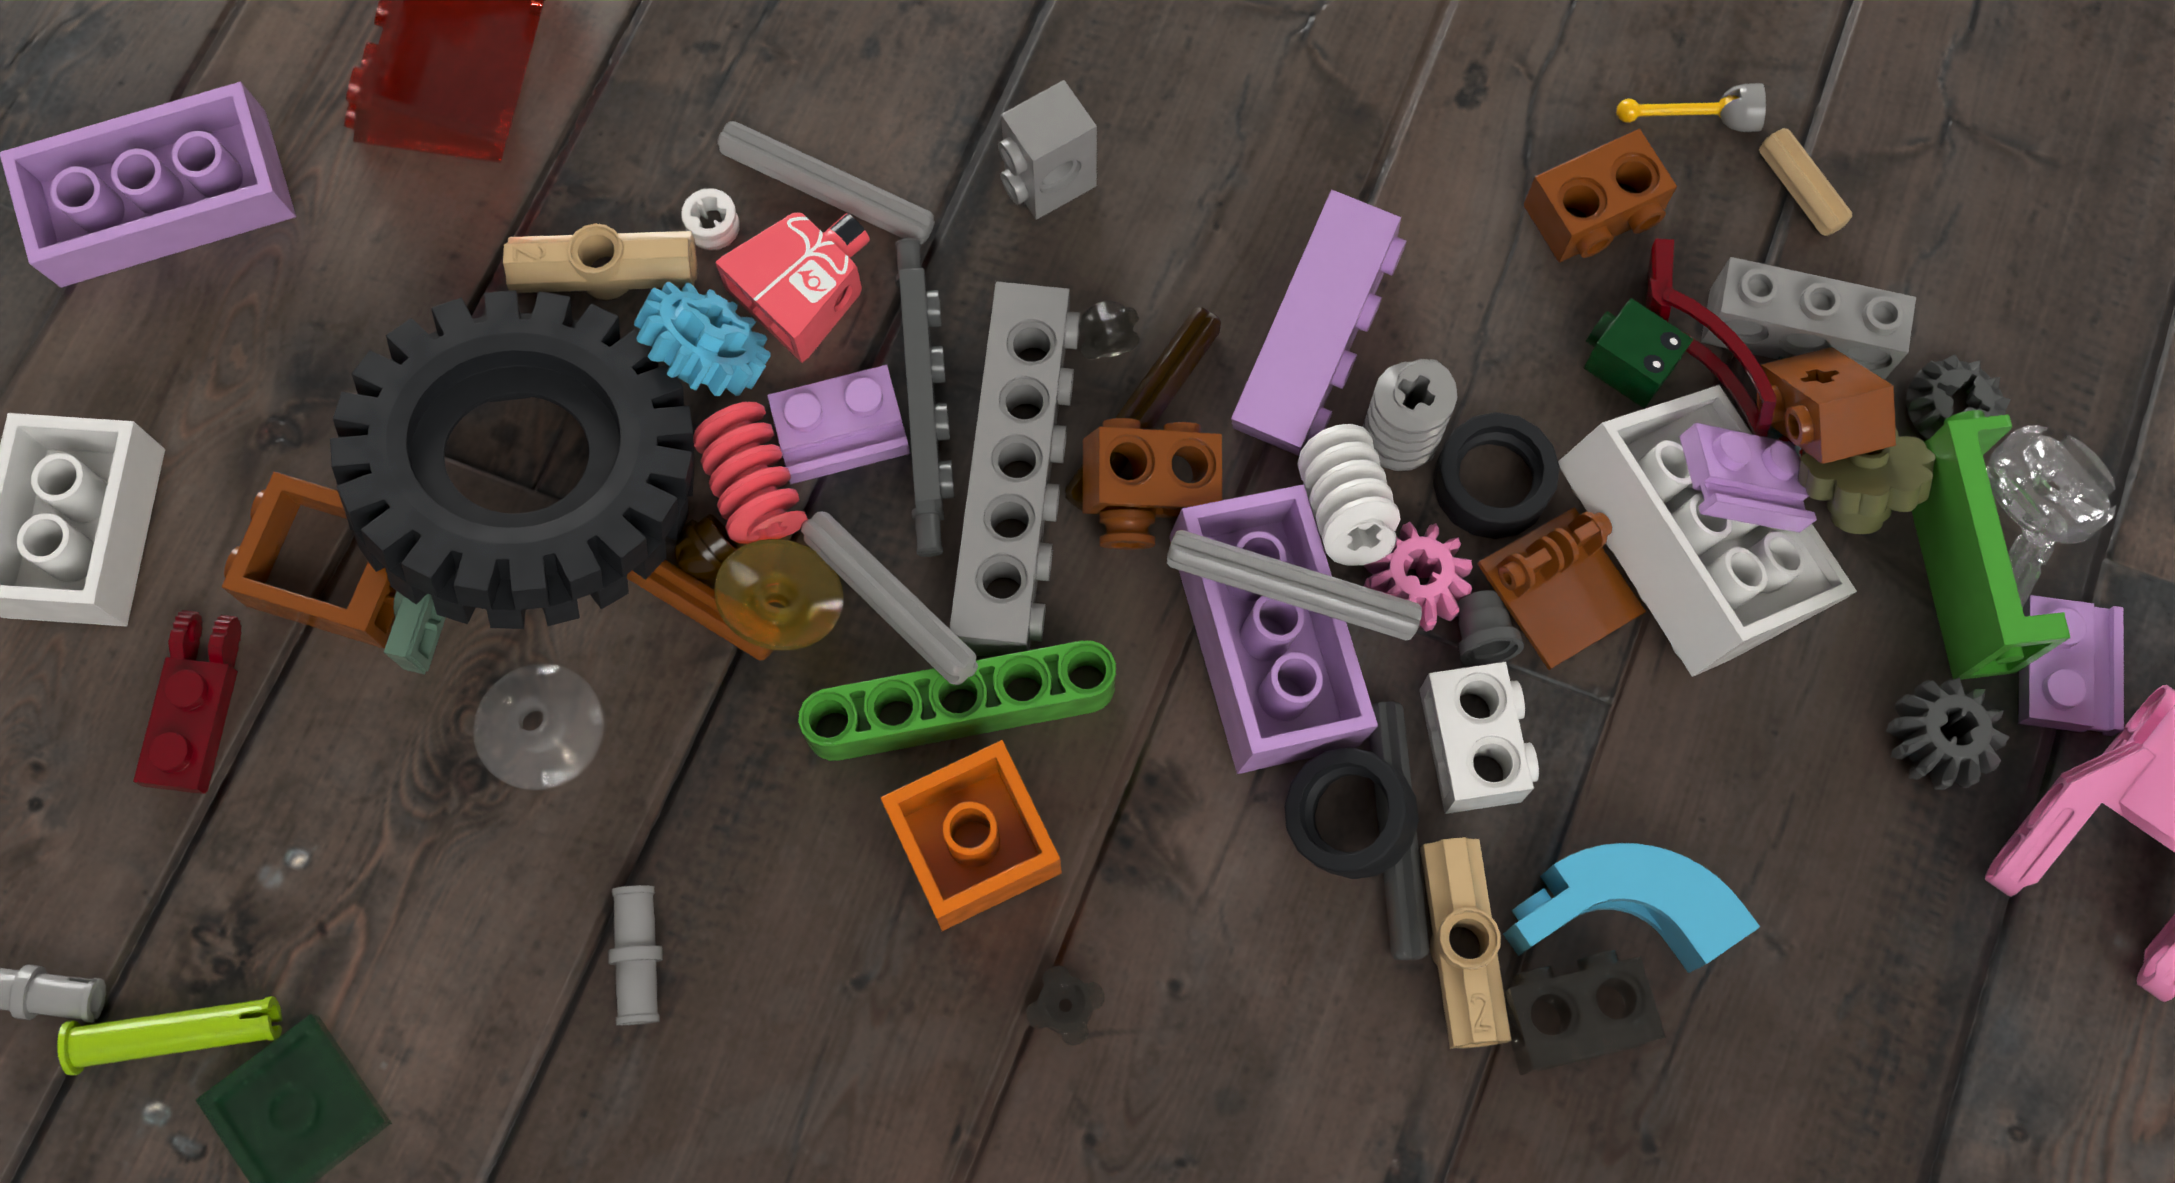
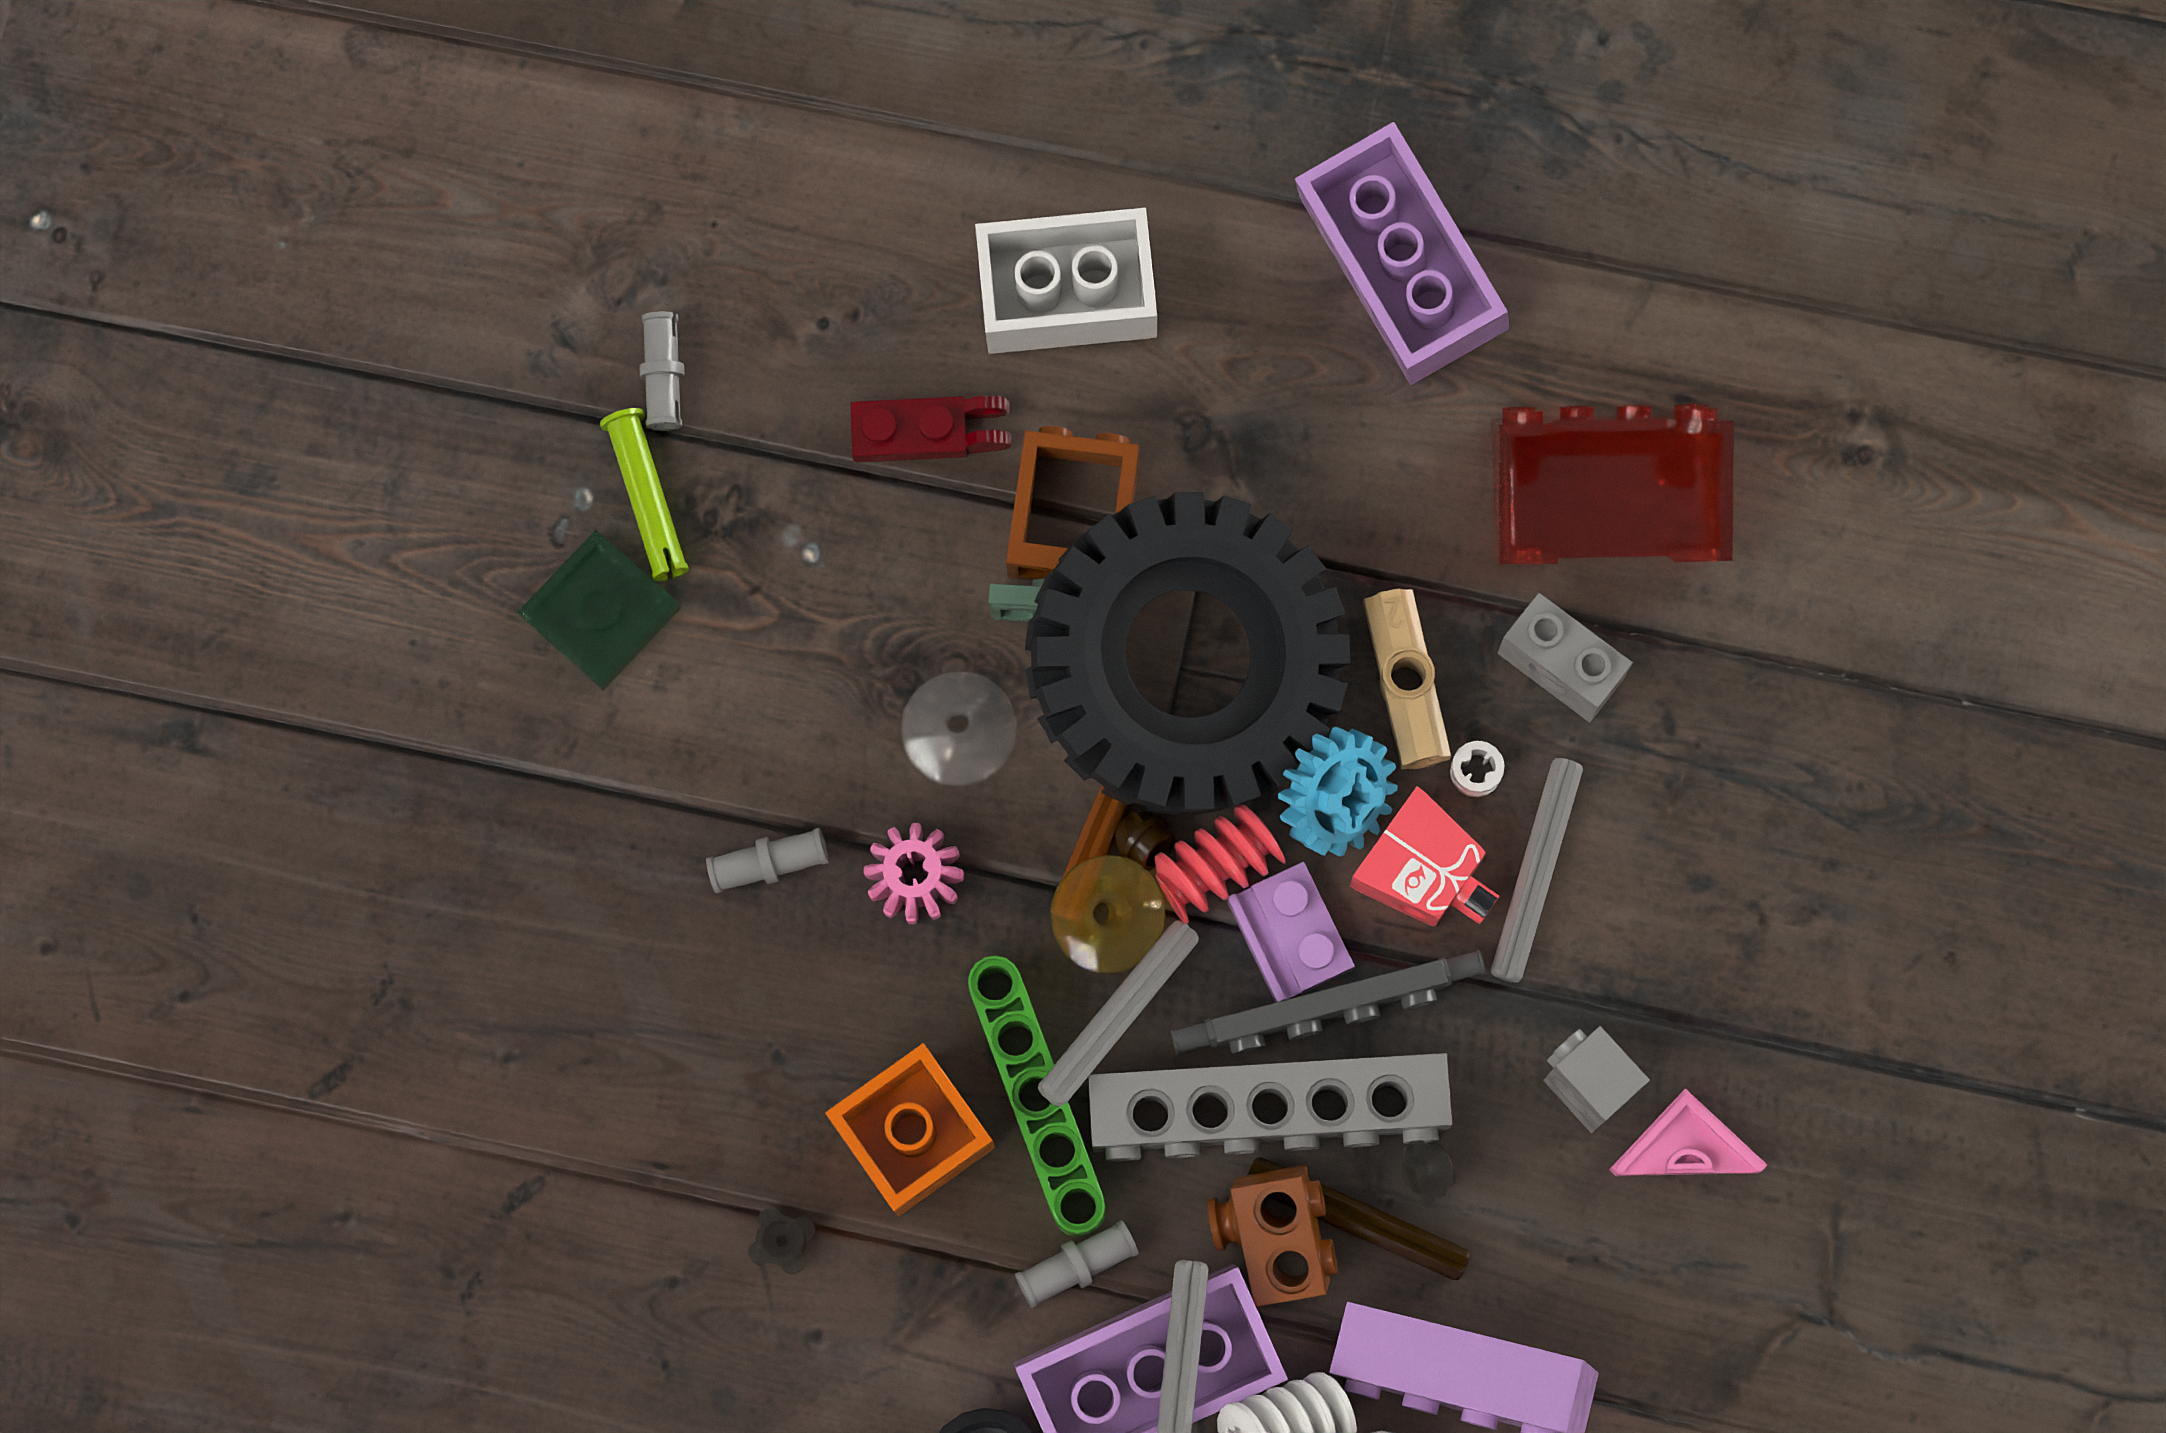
camera: 85 degrees right, 5 degrees up
(617, 112) = (1564, 657): none -> light grey brick
(677, 815) = (935, 867): none -> bright pink gear
(1122, 101) = (1687, 1142): none -> bright pink tile
(1144, 690) = (1076, 1264): none -> light grey pin

